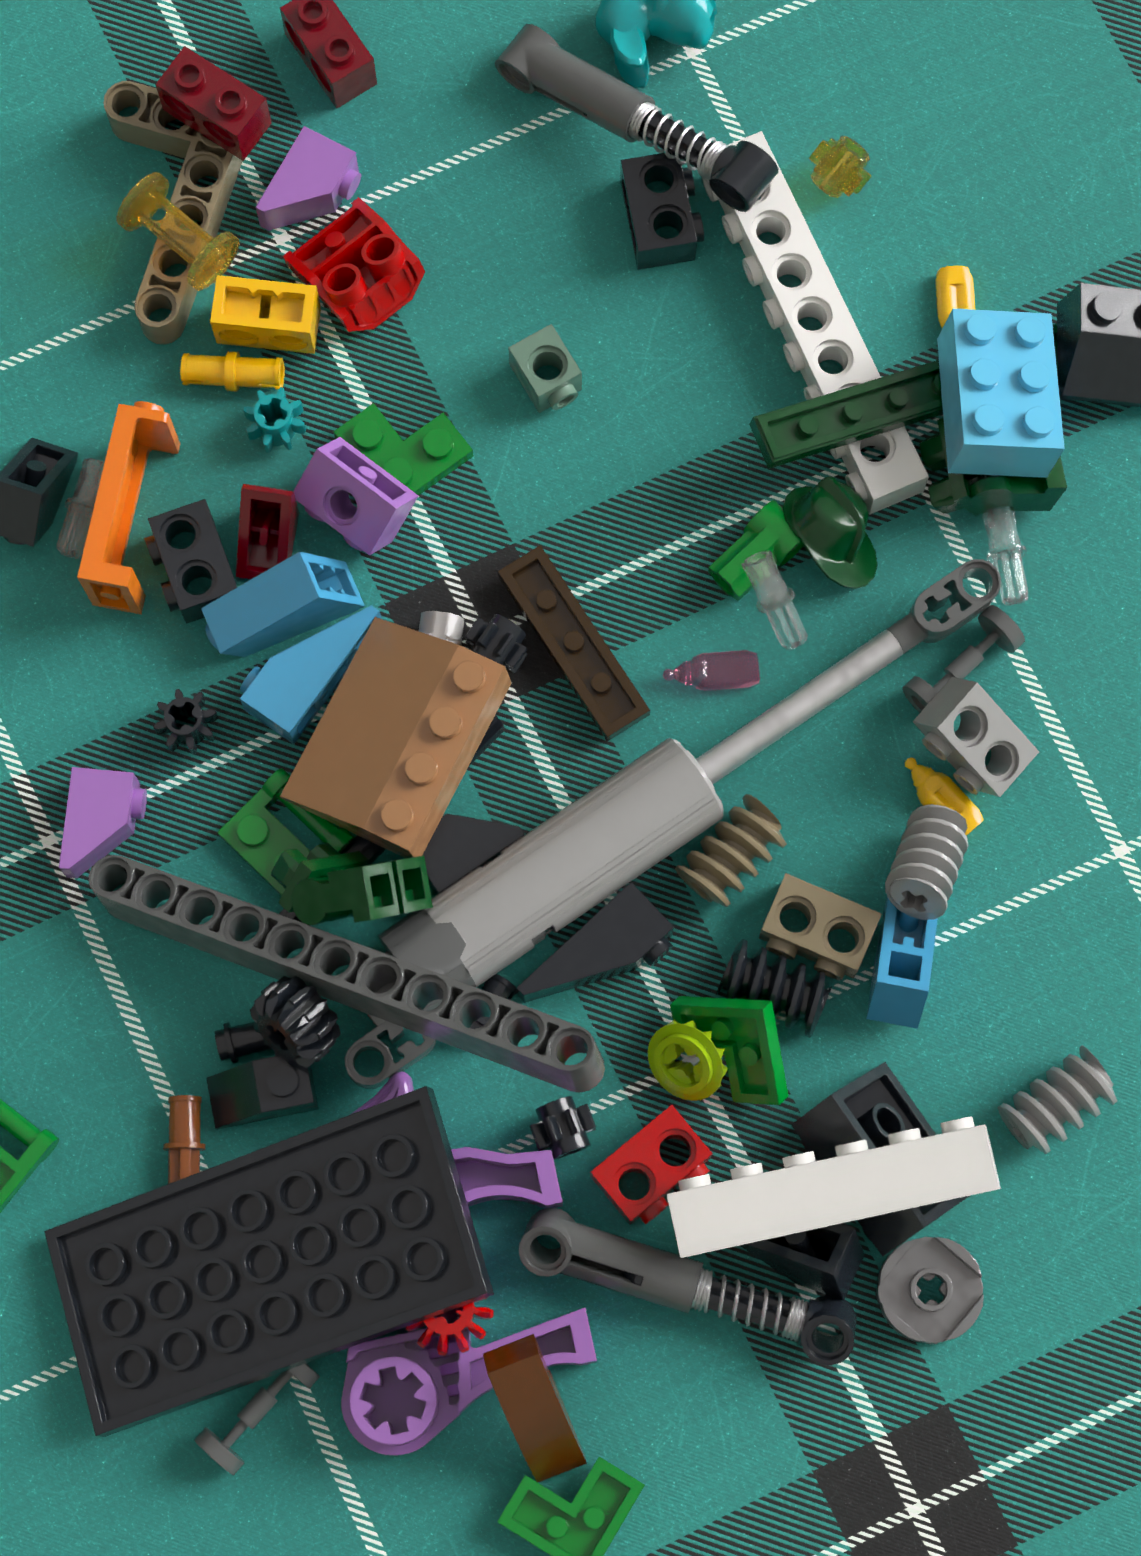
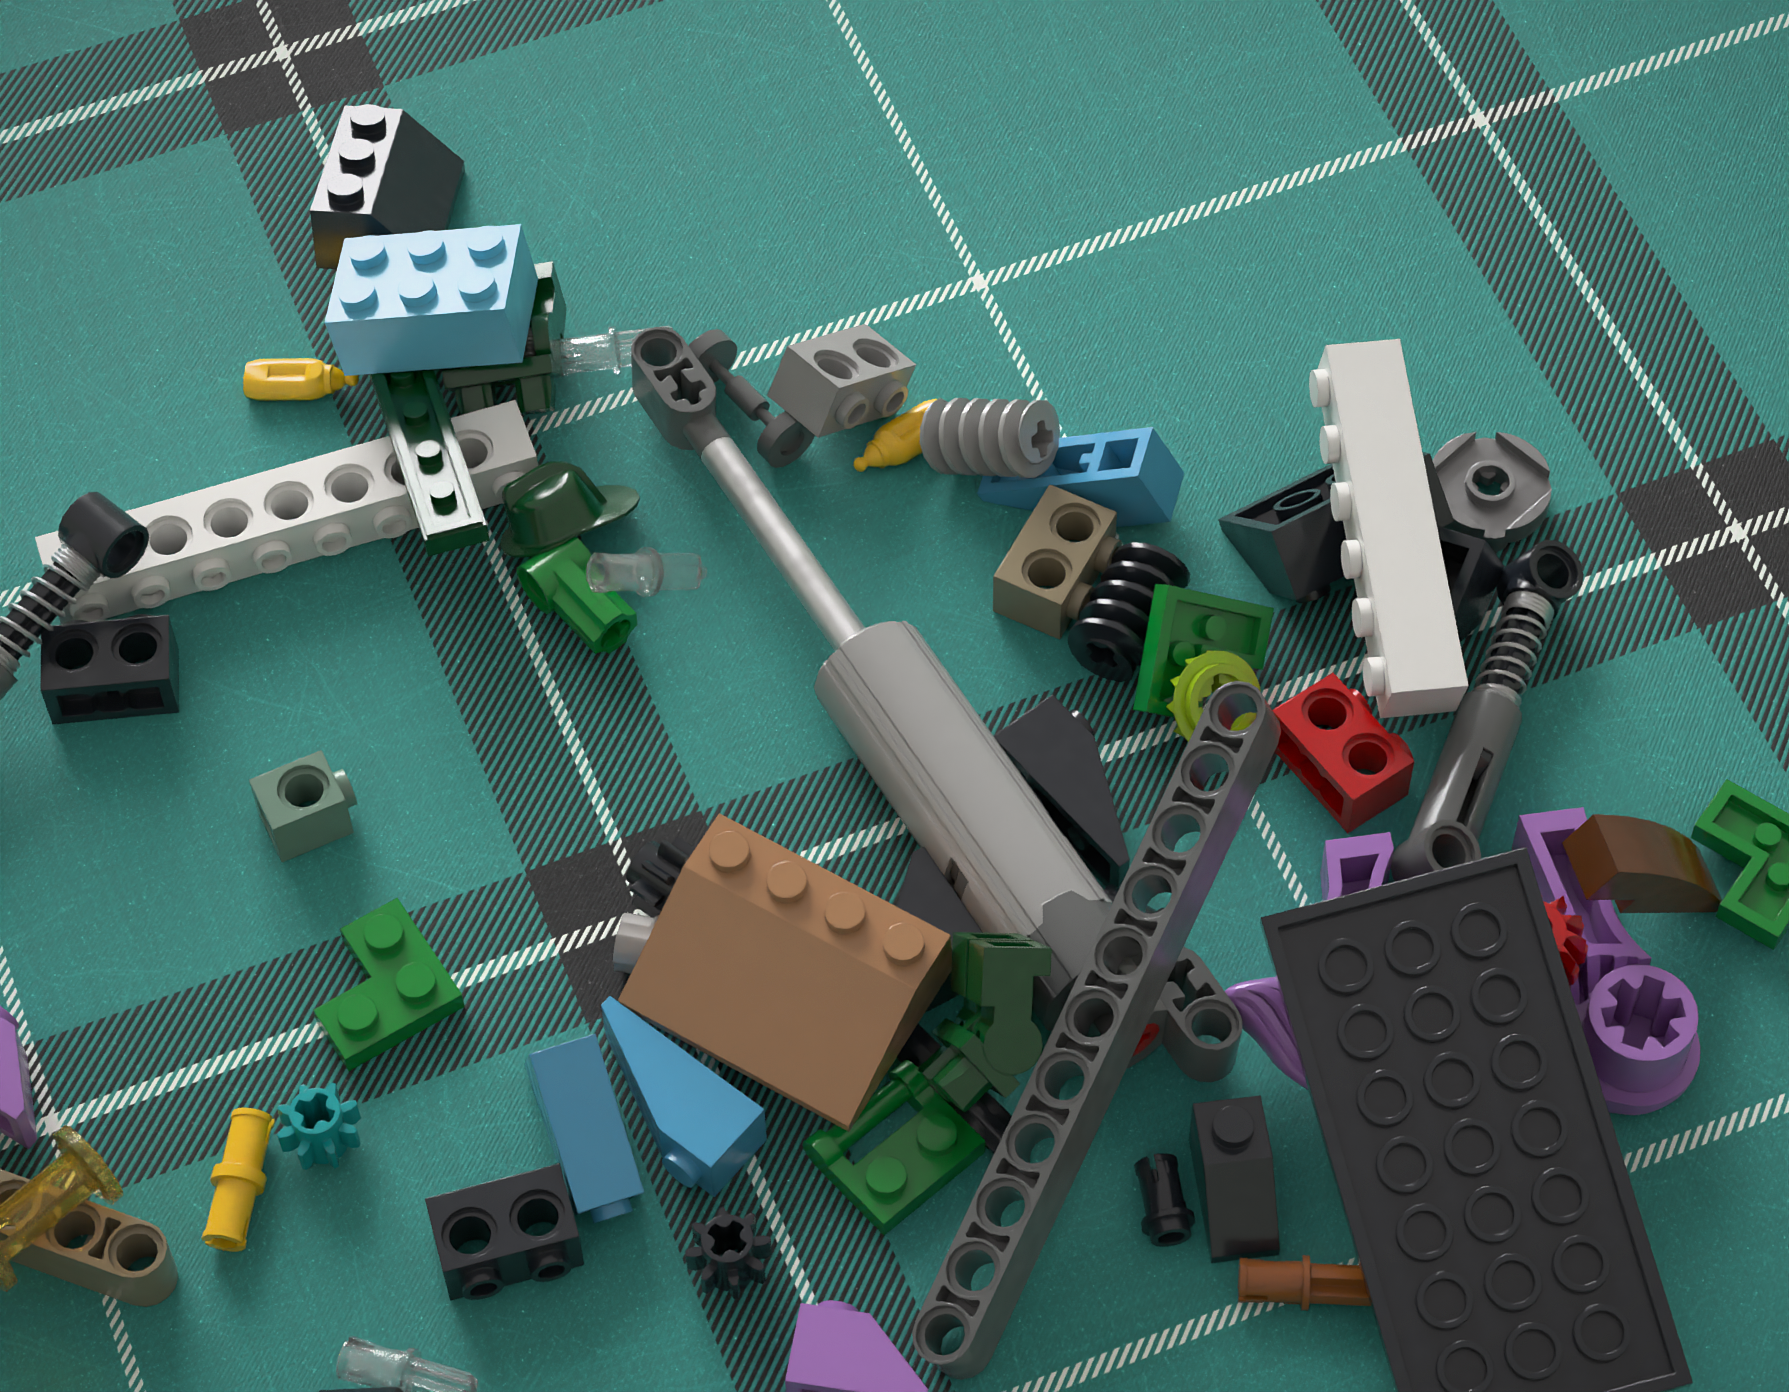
camera: 85 degrees left, 20 degrees down
(133, 436) = (424, 1310): orange panel -> none
(250, 1416) = (1699, 1250): dark grey wheel -> none
(265, 314) = (170, 1119): yellow brick -> none
(265, 529) = (473, 1139): dark red slope -> none
(295, 1021) = (1162, 1089): black gear -> none
(358, 268) = (116, 1015): red slope -> none
(379, 496) = (409, 1035): medium lavender brick -> none
(563, 1127) = (1292, 839): black gear -> none
(574, 643) = (670, 799): dark brown plate -> none
(718, 670) = (723, 651): clear pink piece -> none
(733, 851) = (962, 638): dark tan piece -> none
(840, 167) = (94, 468): clear yellow gear -> none
(1058, 1101) = (1271, 342): light grey piece -> none

